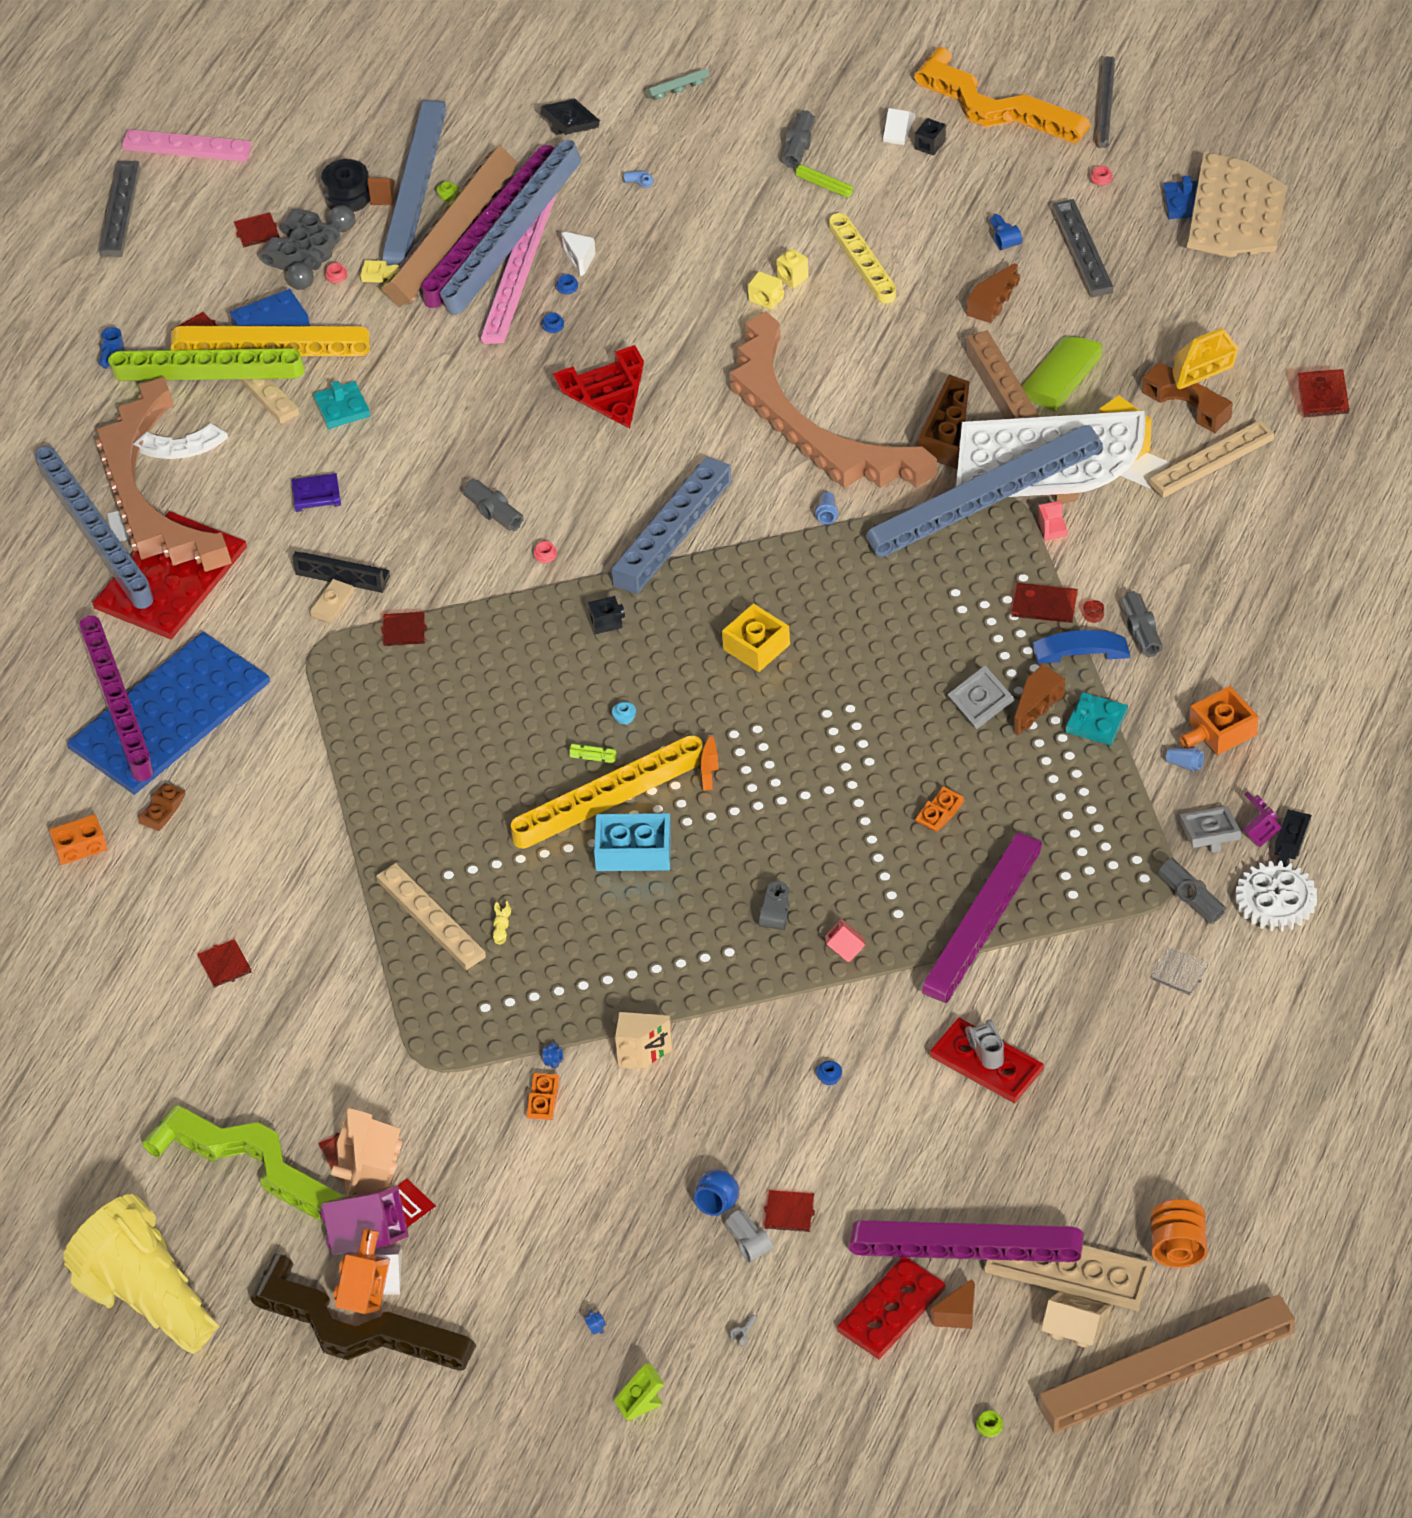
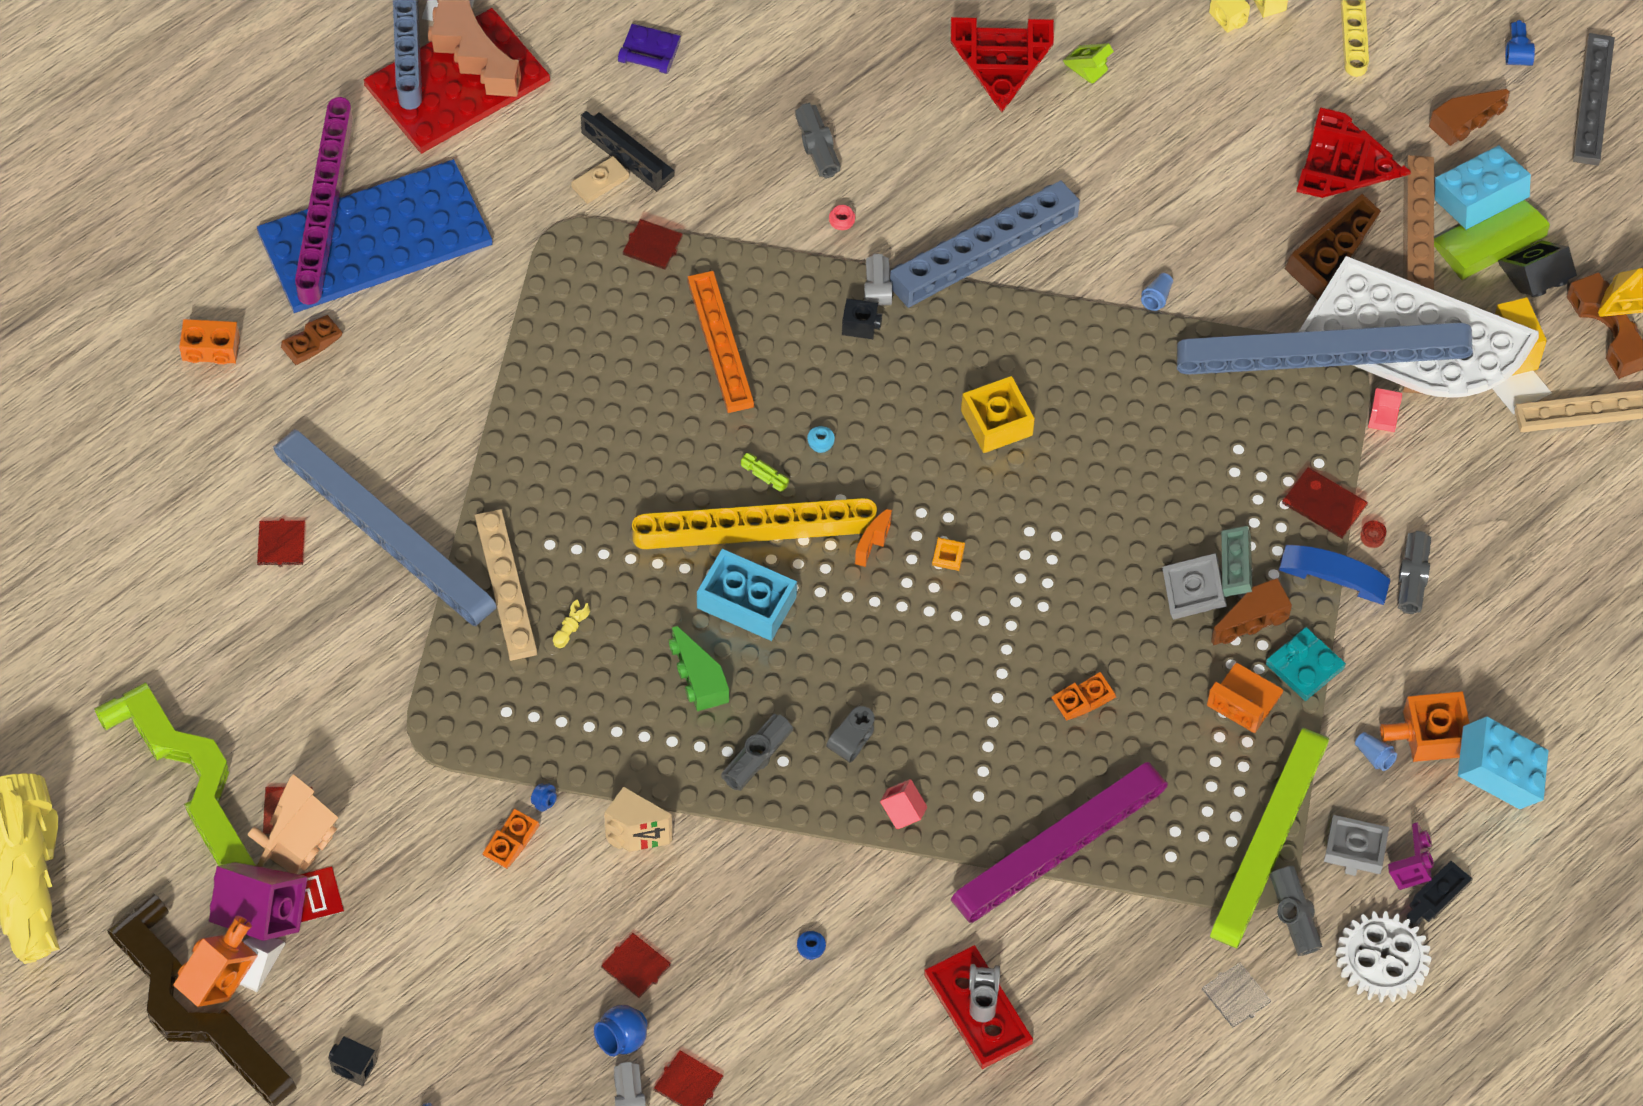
camera: 20 degrees right, 10 degrees up
(306, 914) = (385, 528): none -> sand blue beam
(502, 675) = (720, 342): none -> orange plate
(510, 1306) = (352, 1060): none -> black brick
(602, 581) = (877, 283): none -> light grey piece
(630, 914) = (702, 673): none -> bright green slope
(676, 367) = (1089, 60): none -> lime slope
(697, 1146) = (636, 965): none -> clear red piece
(707, 951) = (747, 763): none -> dark grey piece
(775, 751) = (948, 554): none -> light orange brick
(838, 456) = (1202, 238): nougat arch -> none
(918, 357) = (1344, 158): none -> red wedge
(1003, 666) = (1236, 561): none -> sand green plate
(1036, 337) = (1482, 187): none -> medium azure brick
(1064, 760) = (1244, 697): none -> orange bracket
(1111, 377) = (1539, 267): none -> black slope
(1142, 848) = (1269, 838): none -> lime beam
(1289, 722) = (1503, 763): none -> medium azure brick

